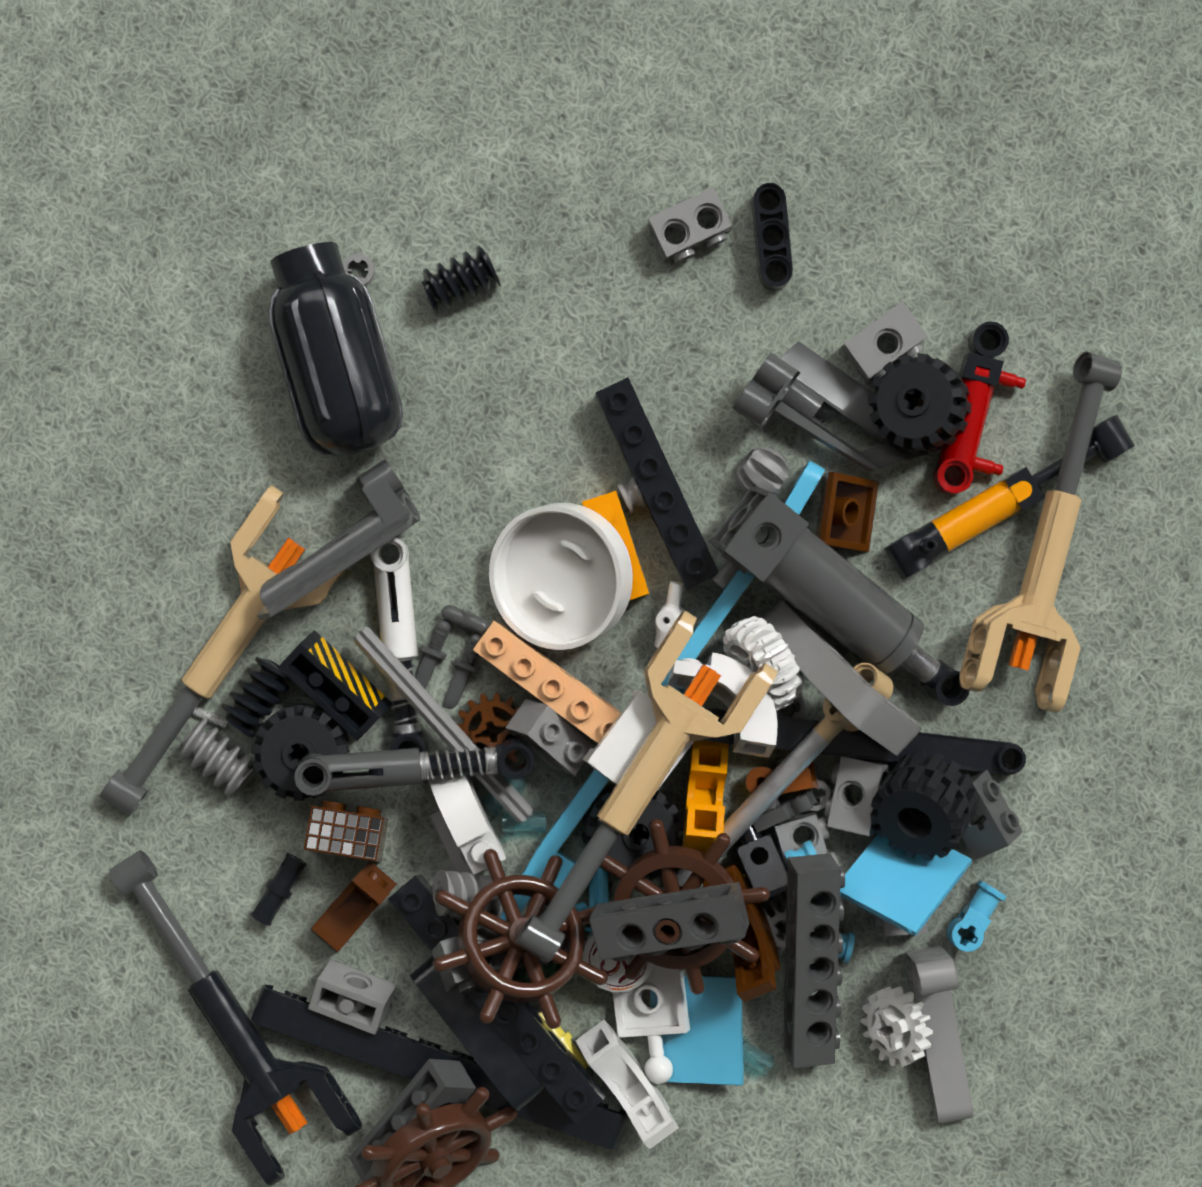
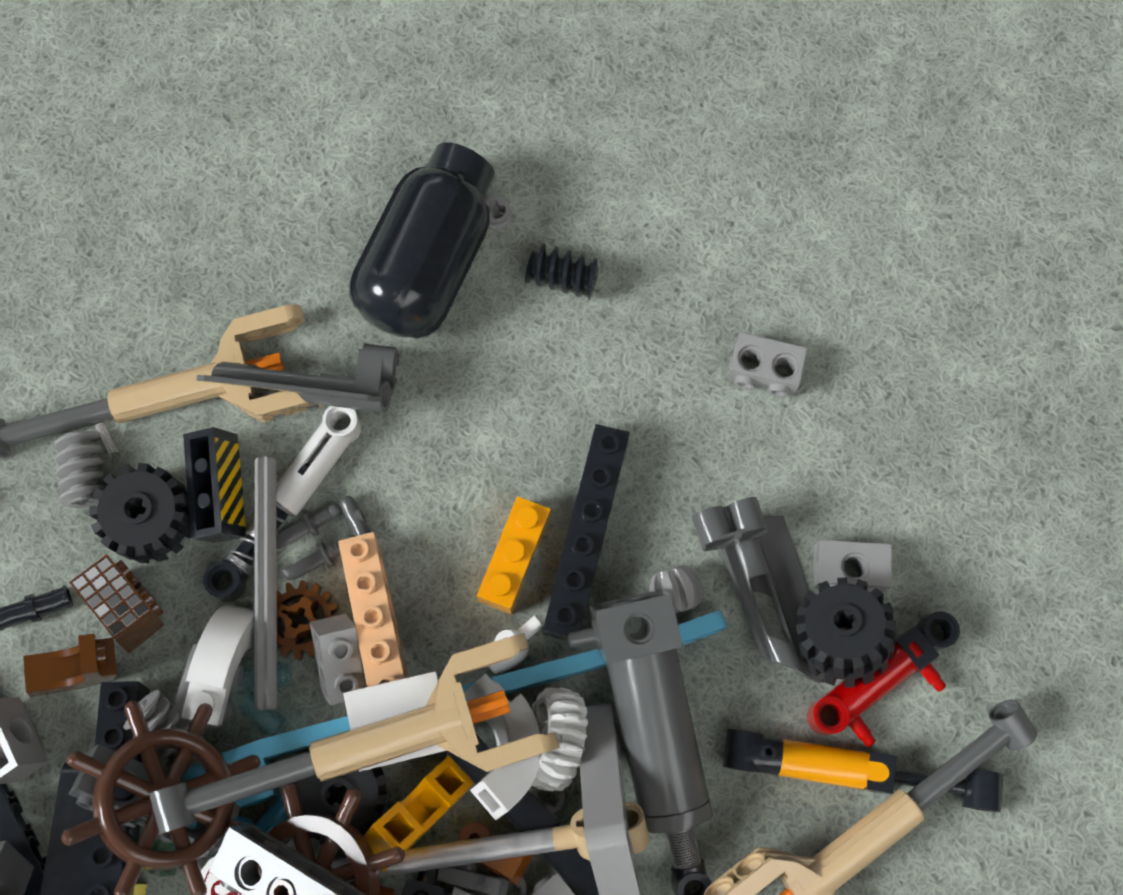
camera: 35 degrees right, 15 degrees down
(255, 696) = (150, 448): black piece -> none
(408, 767) = (206, 585): piece -> none
(560, 576) = (453, 540): white piece -> none
(631, 495) = (559, 527): light grey bush -> none
(777, 220) = (834, 410): black beam -> none
(847, 511) = (720, 675): reddish brown slope -> none

